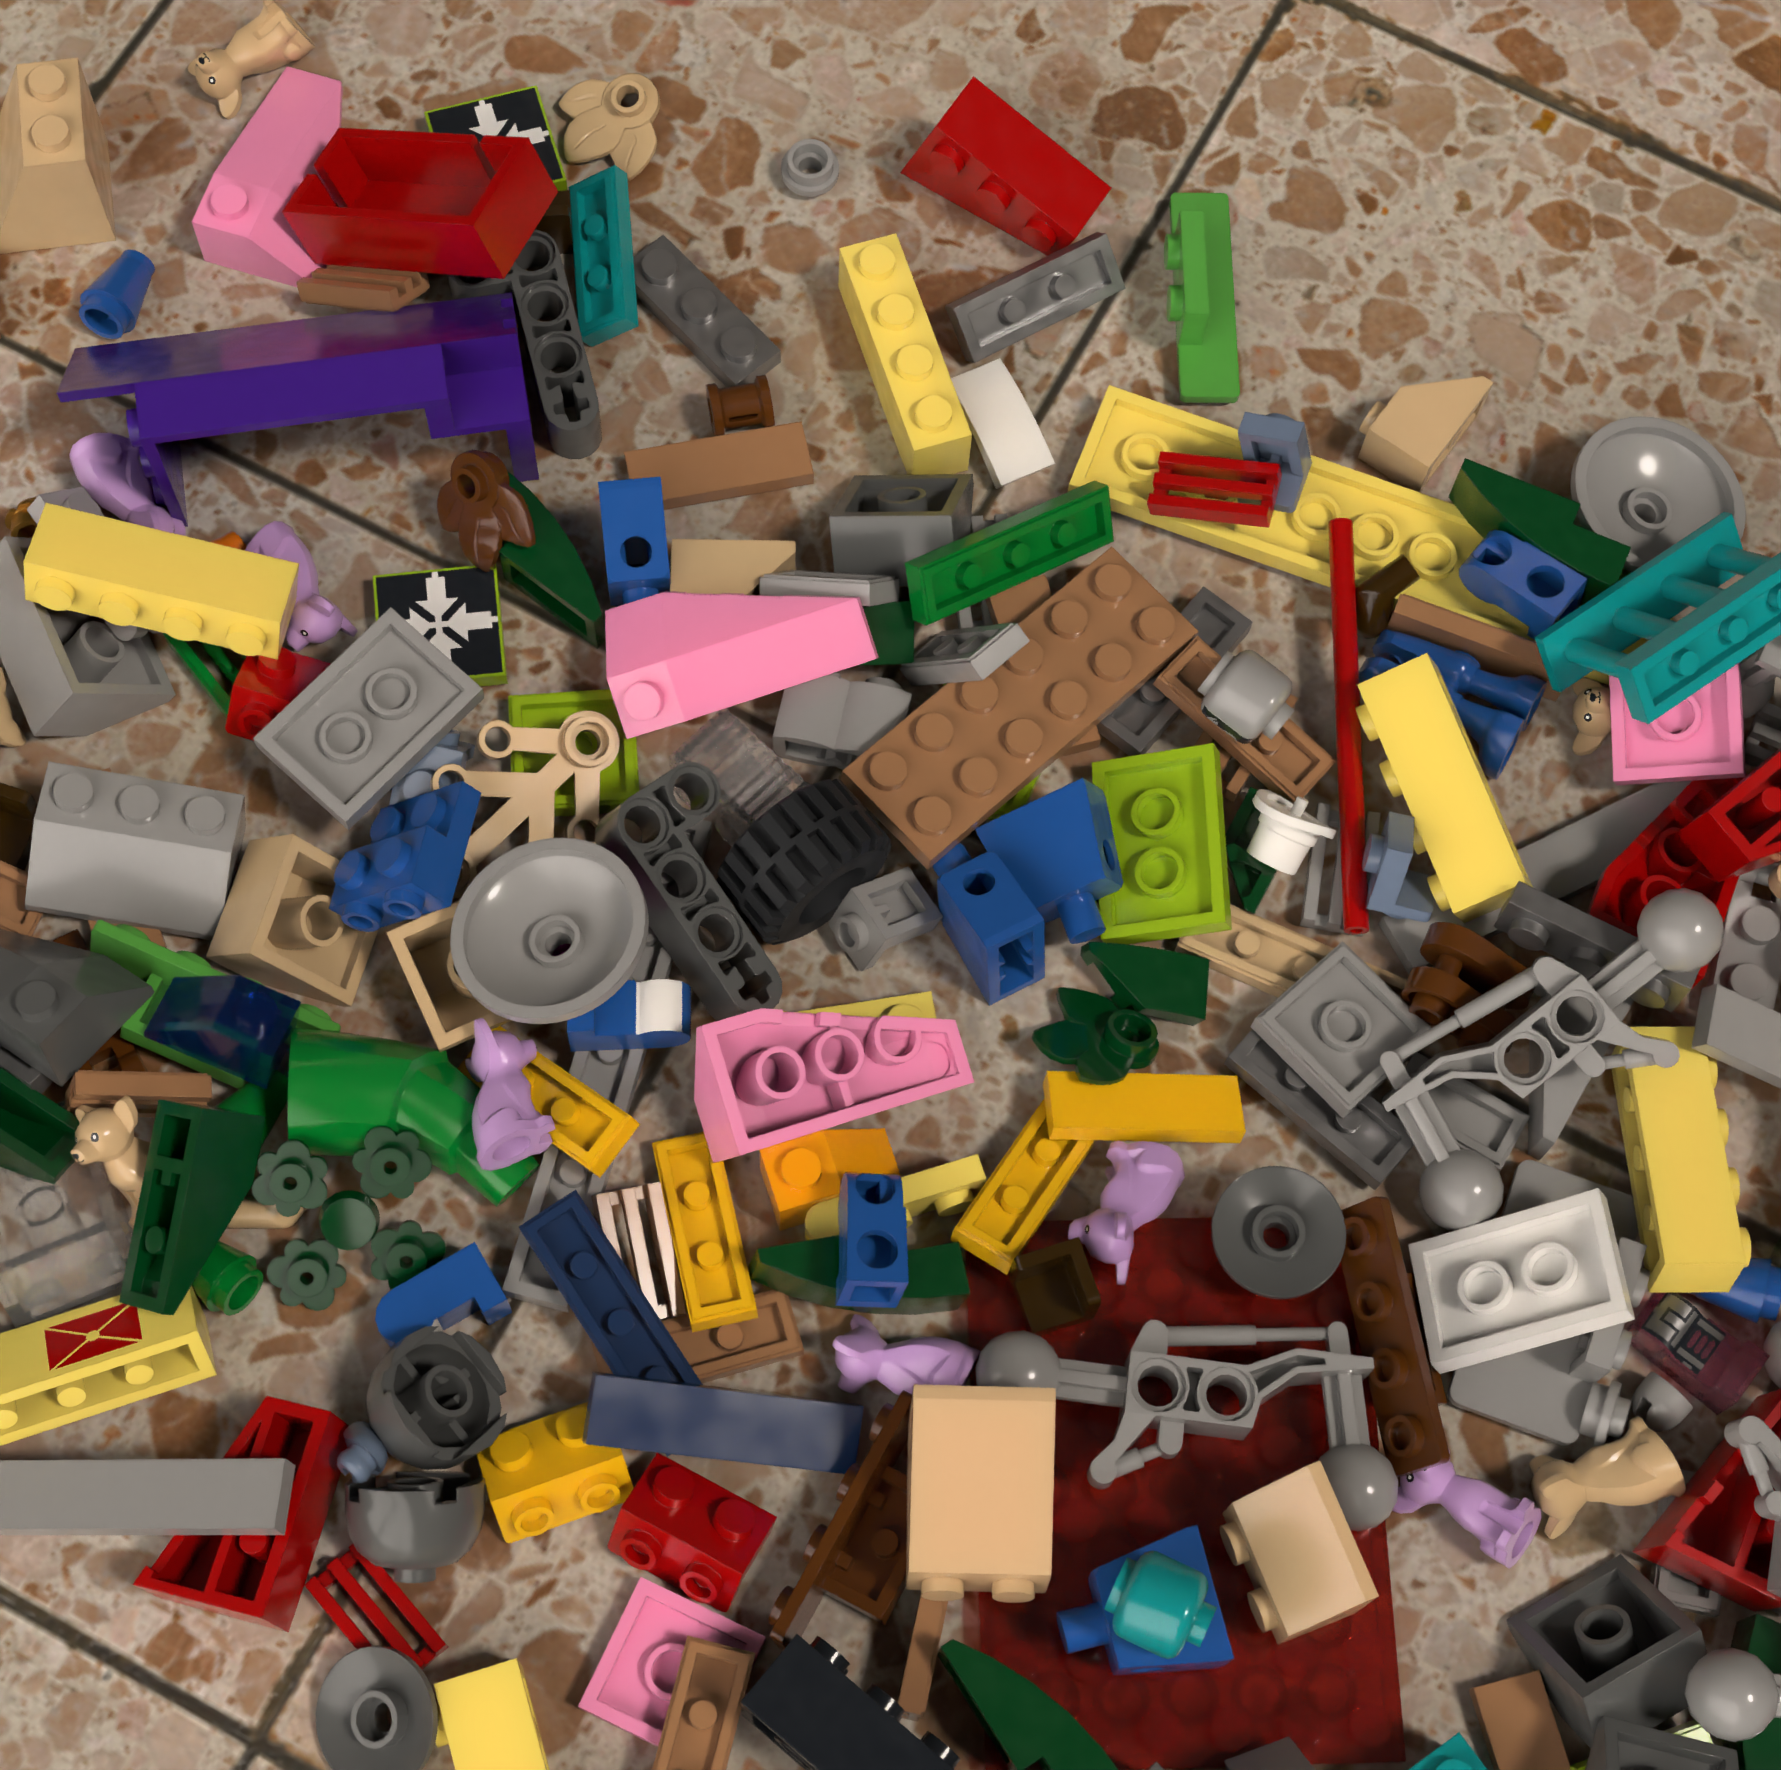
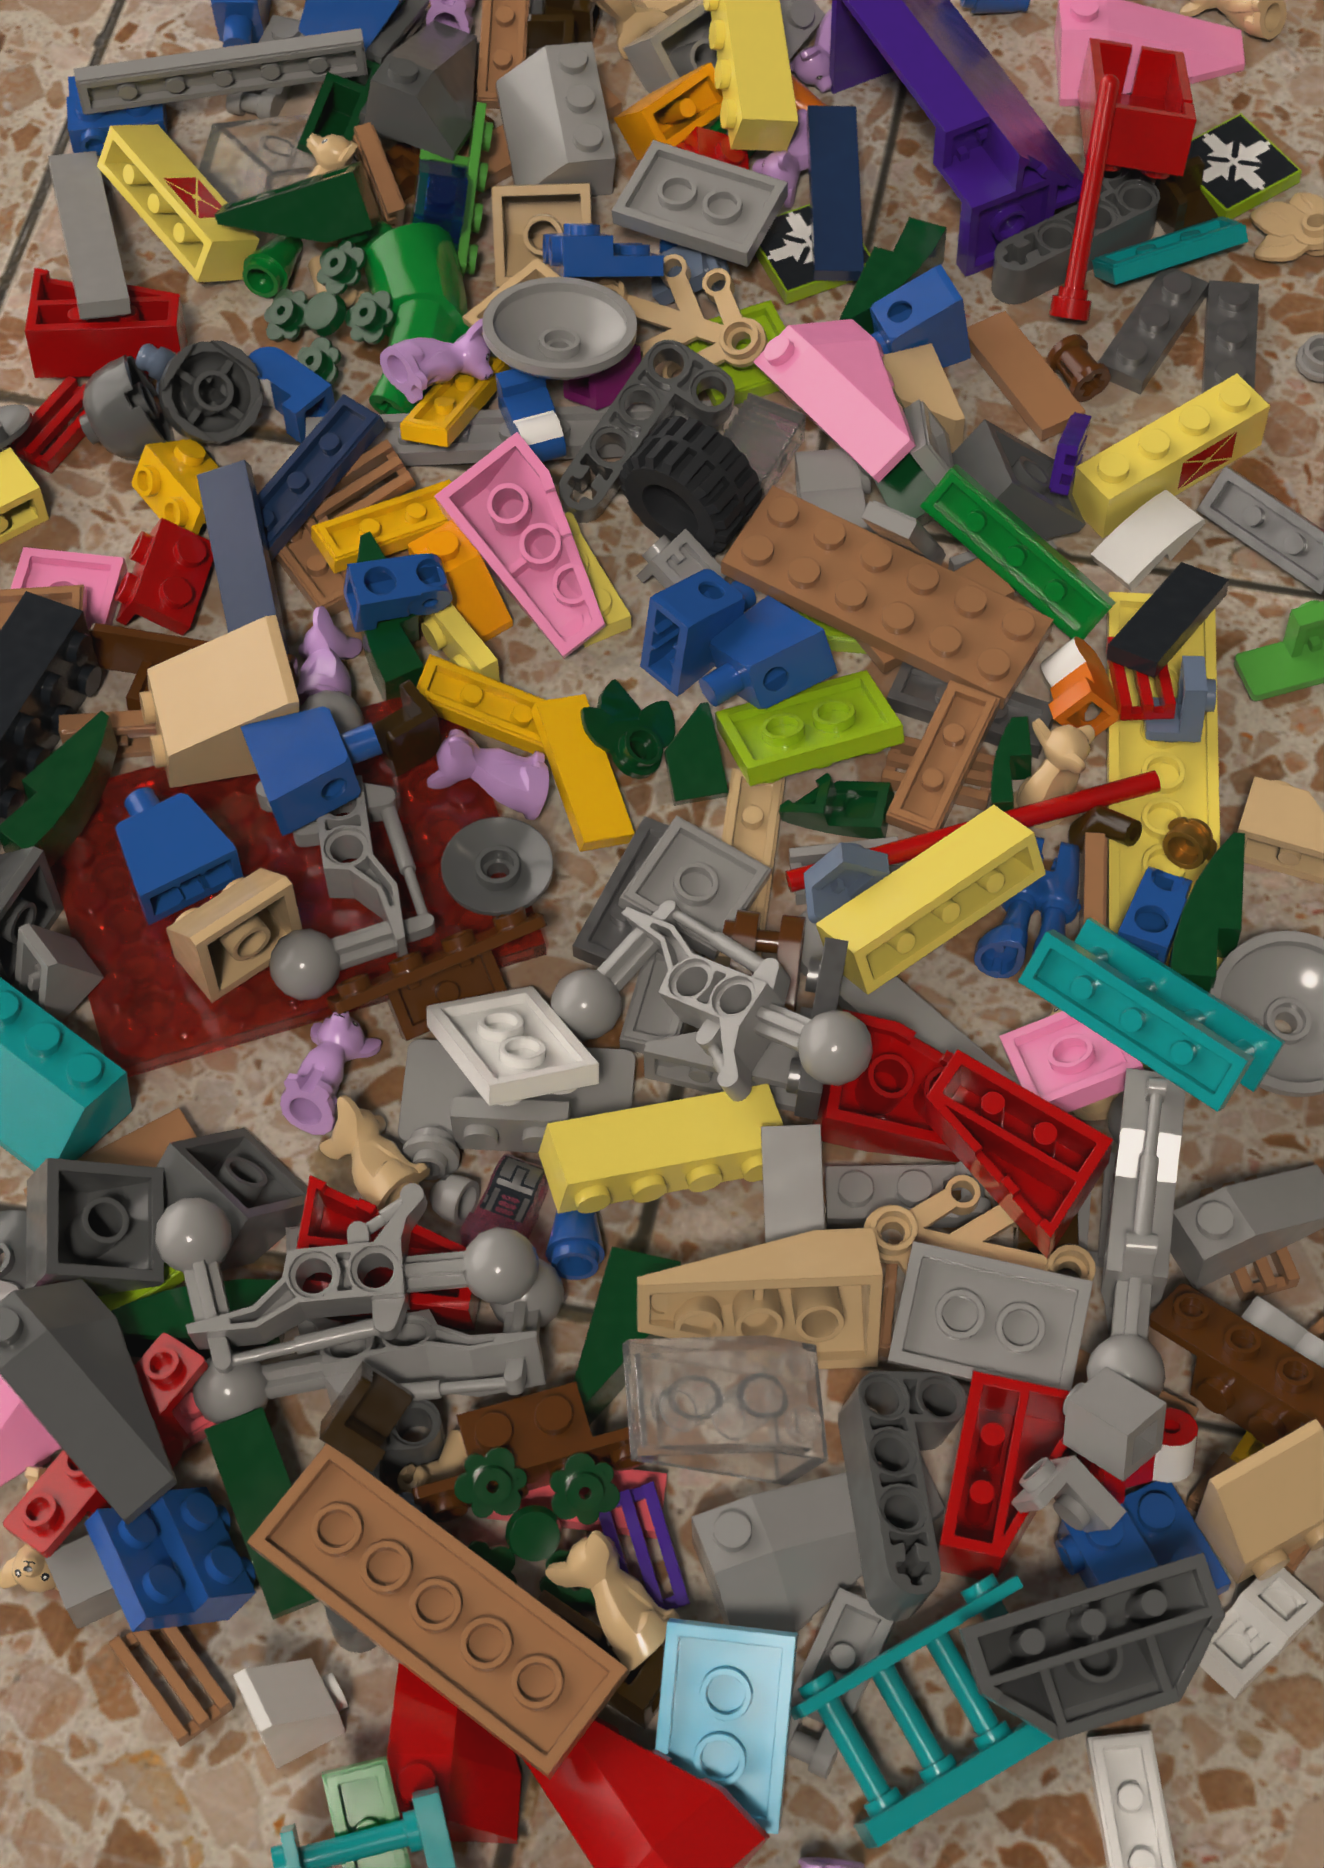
camera: 80 degrees right, 10 degrees down
(178, 711) = (672, 111): none -> light orange slope
(362, 287) = (1067, 121): medium nougat tile -> none
(392, 566) = (834, 193): none -> dark blue tile
(483, 508) = (913, 212): reddish brown plate -> none
(642, 379) = (1072, 297): none -> red piece
(752, 248) = (1230, 332): none -> flat silver plate
(882, 451) = (1069, 453): none -> dark purple tile
(1117, 1406) = (308, 764): none -> blue torso
(1149, 435) = (1167, 619): none -> black tile
(1160, 1604) = (158, 817): teal head -> none
(1192, 555) = (1076, 682): none -> orange leg
(1246, 696) = (947, 728): light grey head -> none
(1284, 831) = (852, 801): white piece -> none
(1299, 632) = (1060, 771): none -> tan animal
(1309, 679) = (1011, 762): none -> dark green slope
(1432, 518) = (1189, 842): none -> pearl gold plate

